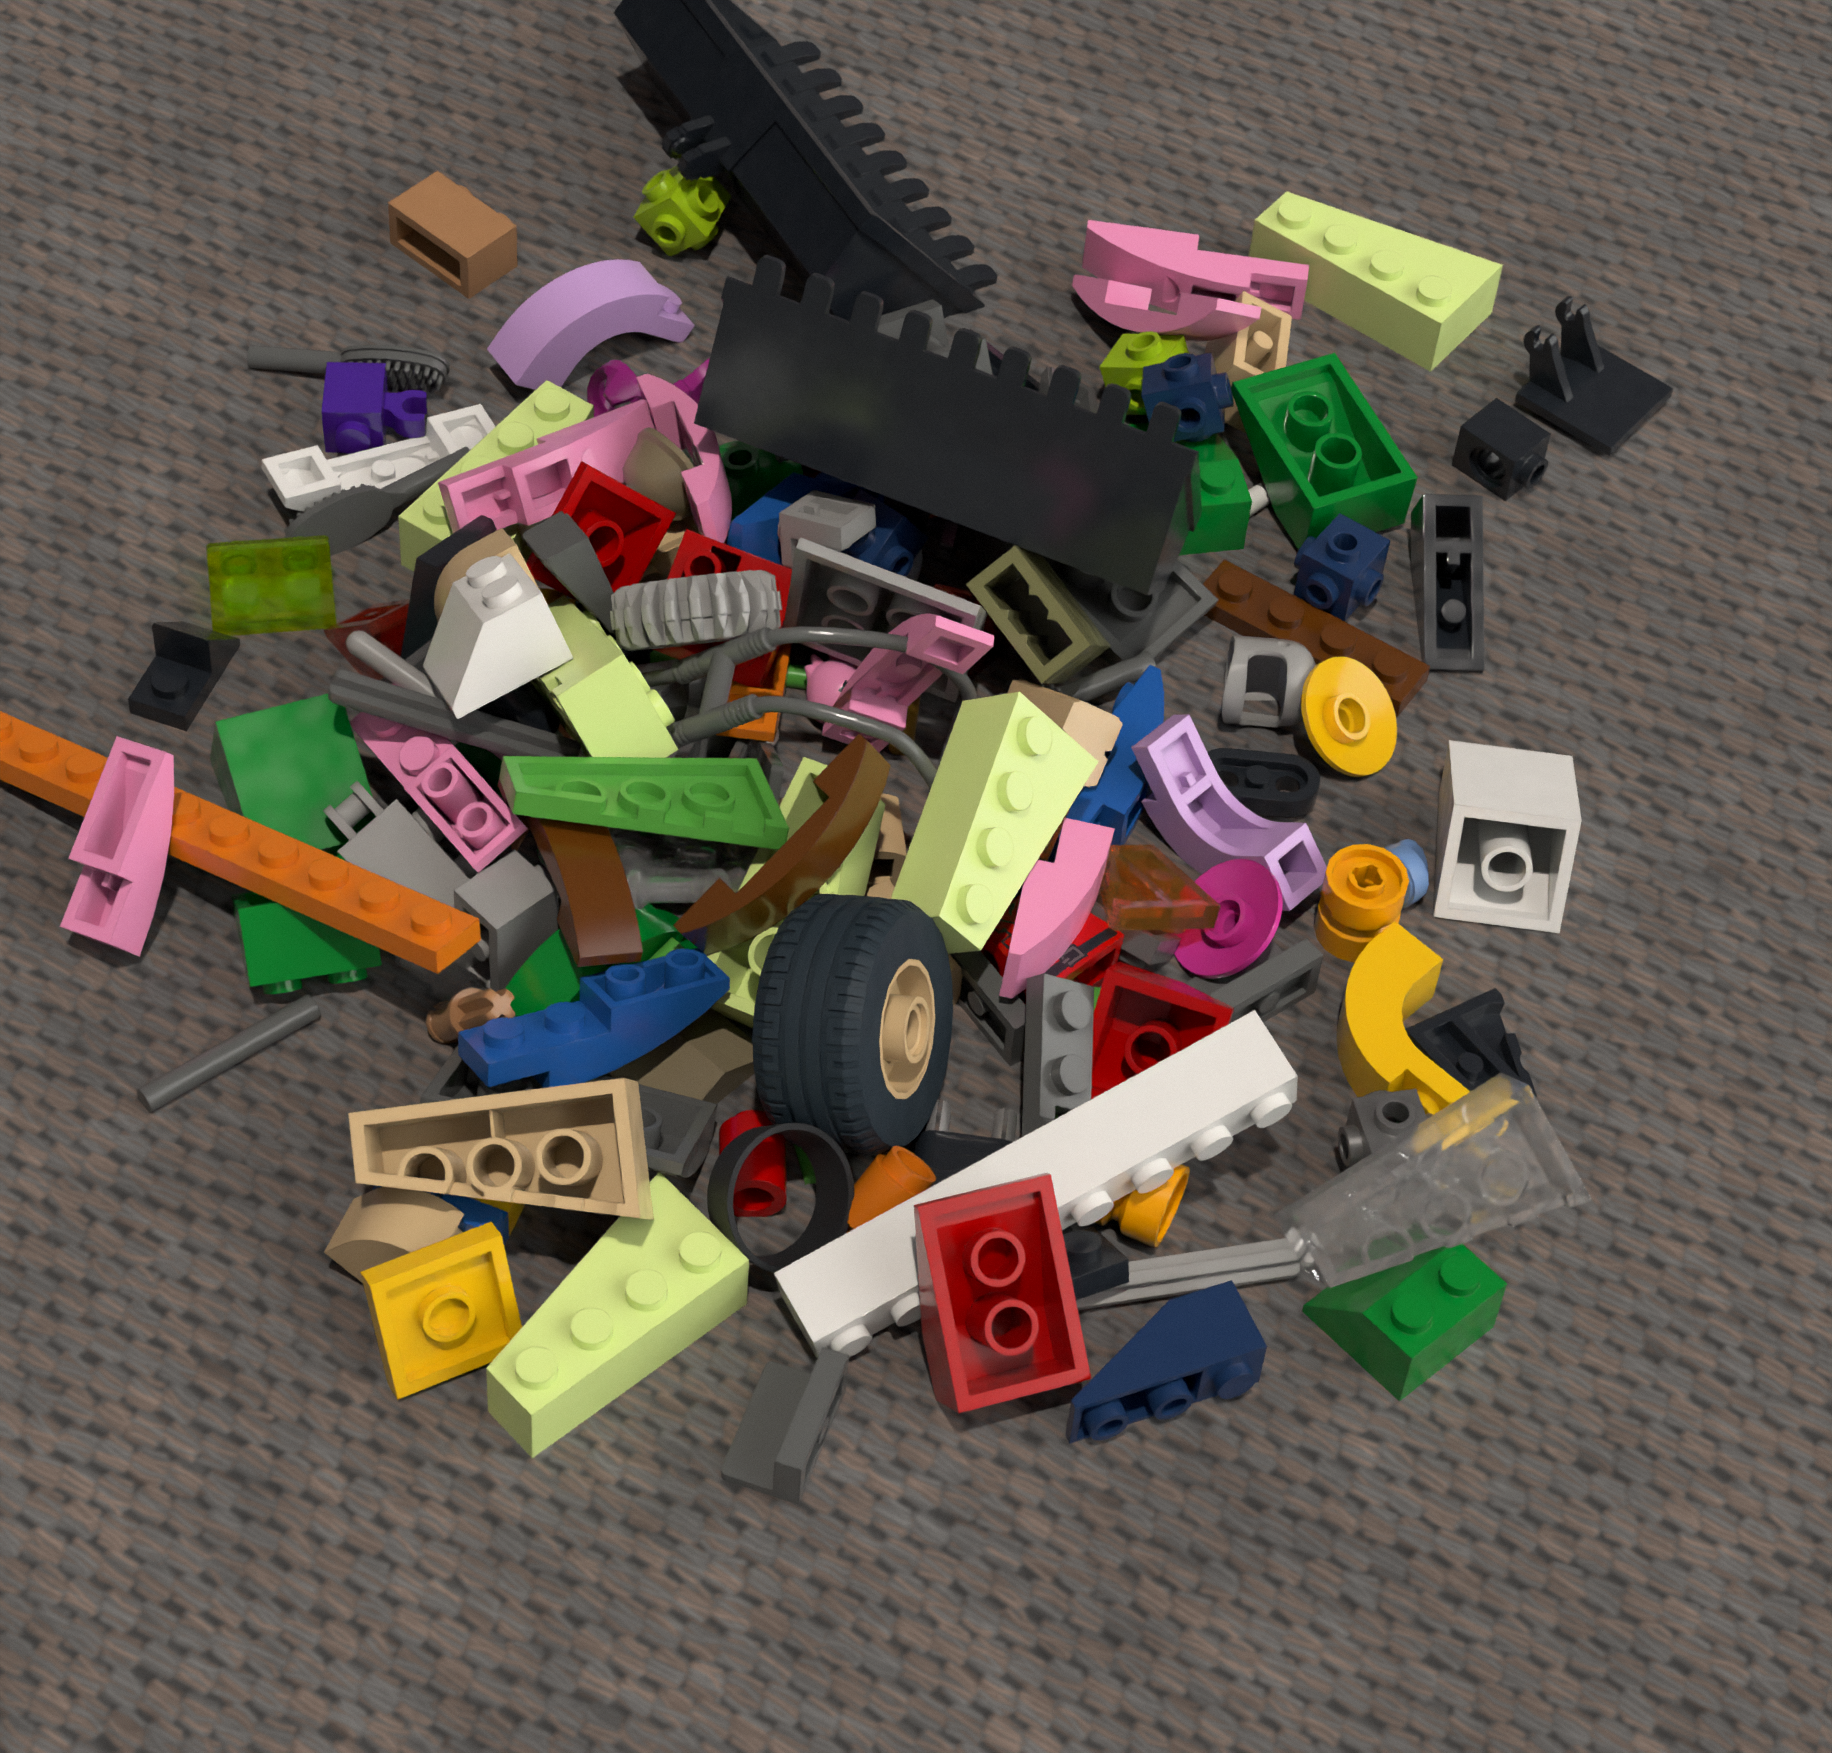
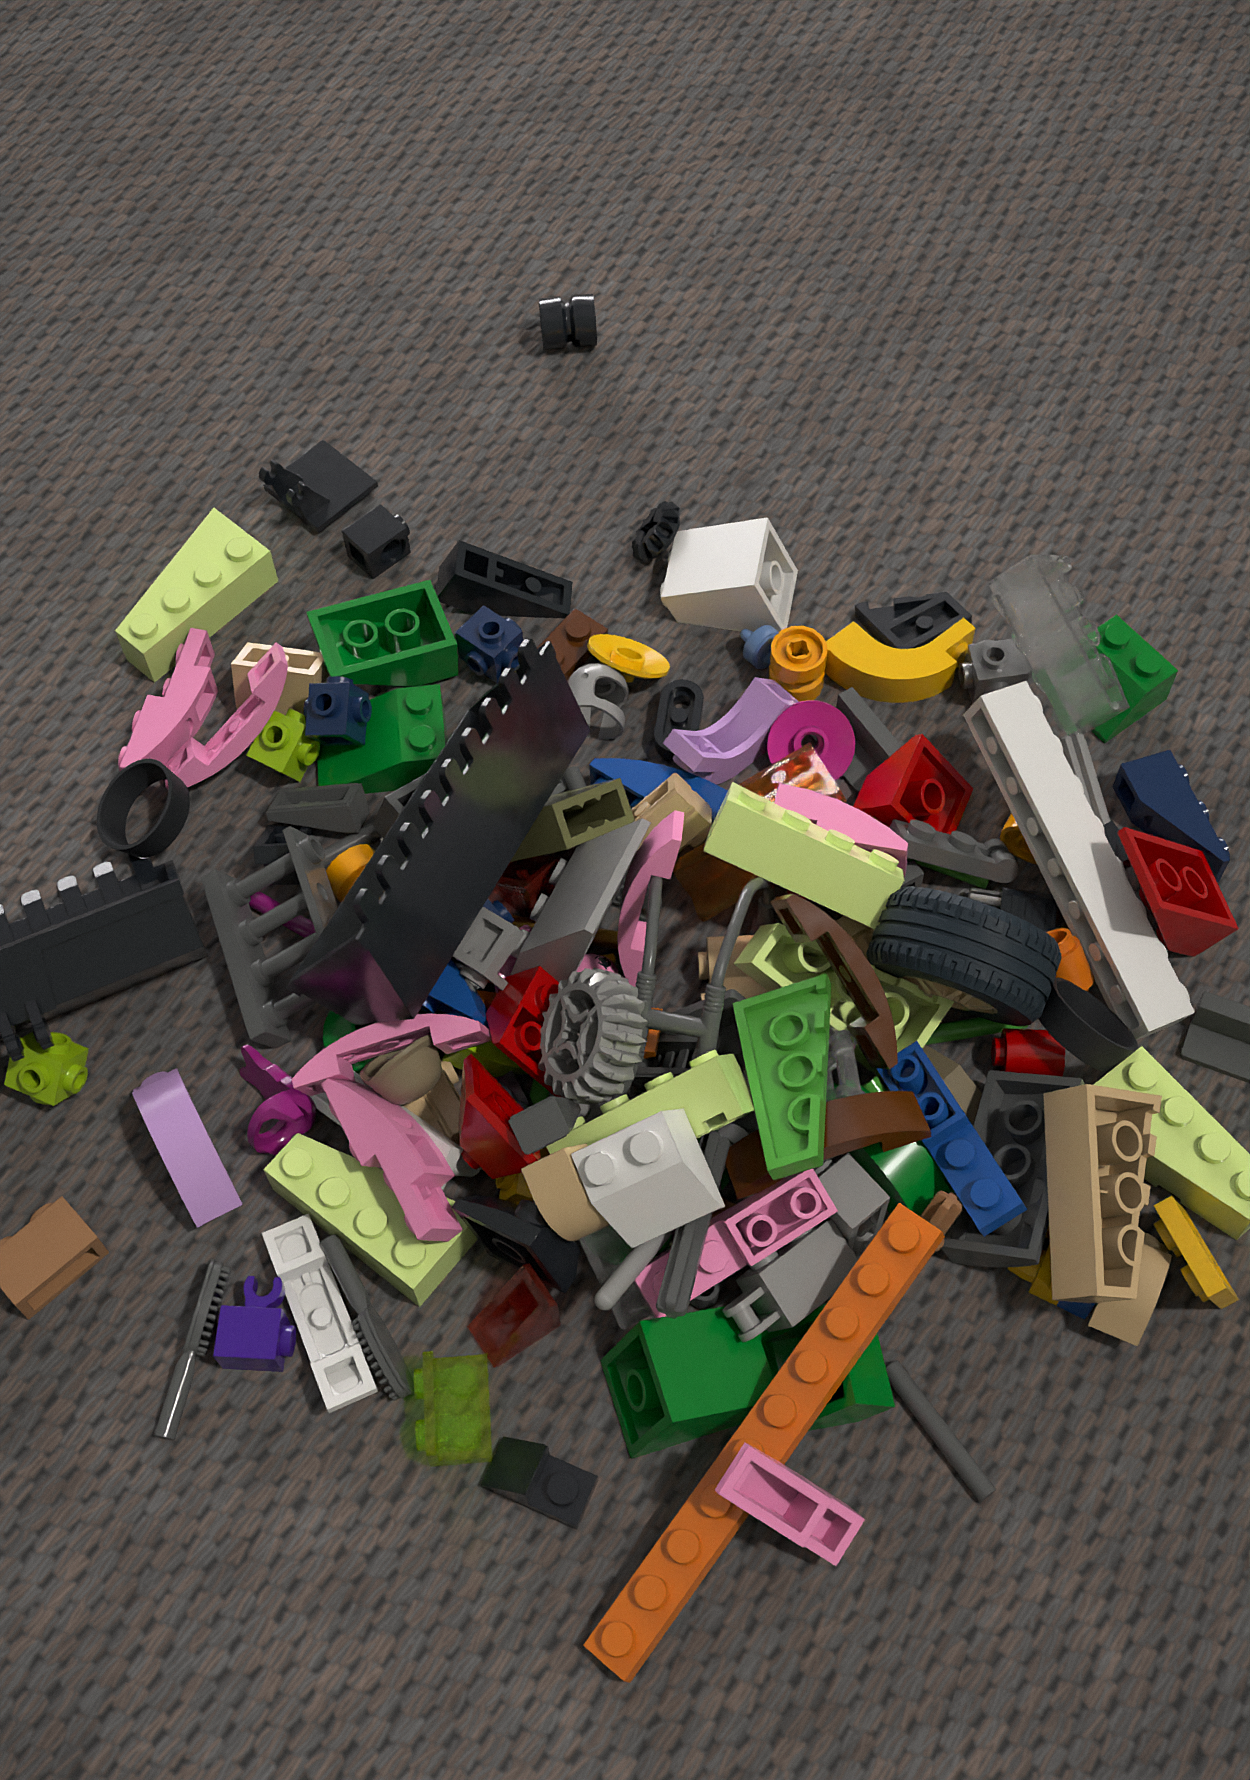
camera: 80 degrees left, 10 degrees up
(1032, 250) = (120, 797): none -> black tyre
(1581, 742) = (656, 532): none -> black gear

